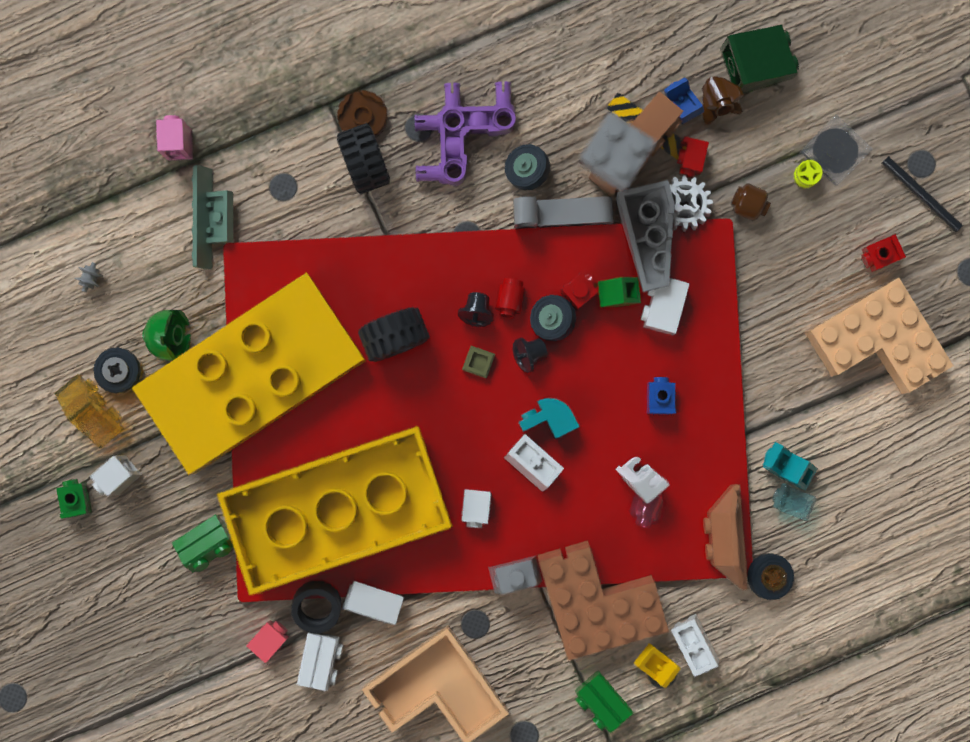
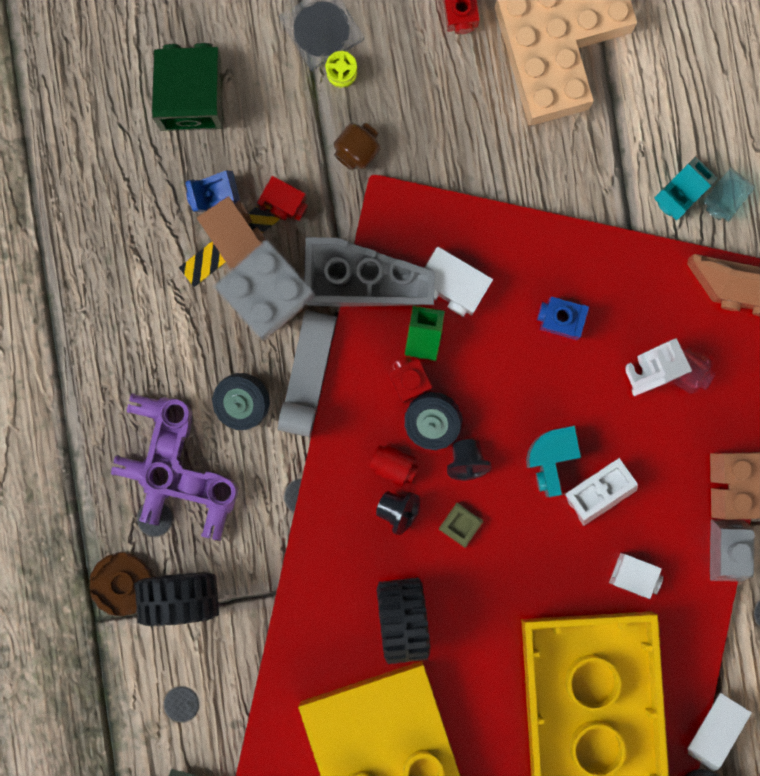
camera: 75 degrees left, 0 degrees up
(692, 210) = (347, 219): white gear -> none
(720, 98) = (222, 147): reddish brown brick -> none

